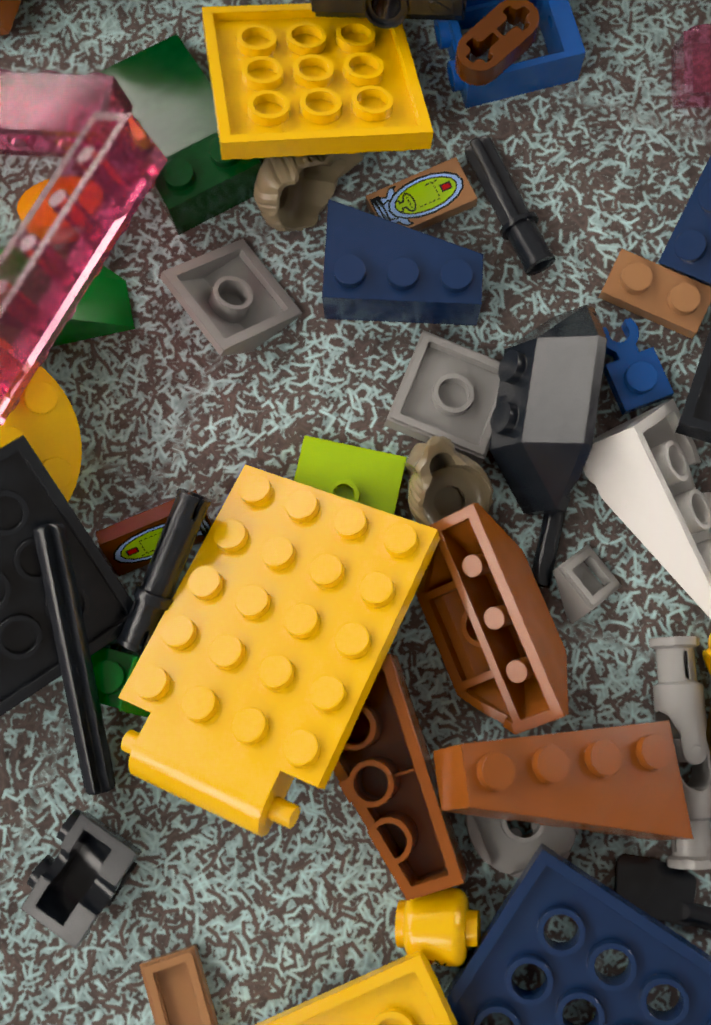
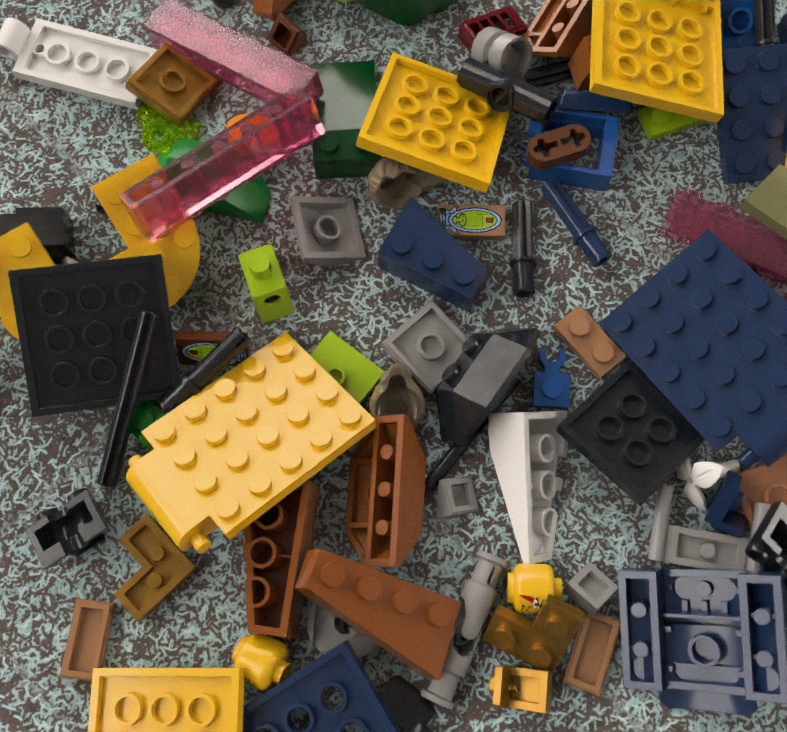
camera: 20 degrees right, 5 degrees down
(35, 47) = (286, 35): none -> reddish brown slope
(185, 407) = (266, 280): none -> lime torso
(238, 871) = (161, 571): none -> pearl gold plate
(562, 138) = (576, 223): none -> dark blue axle

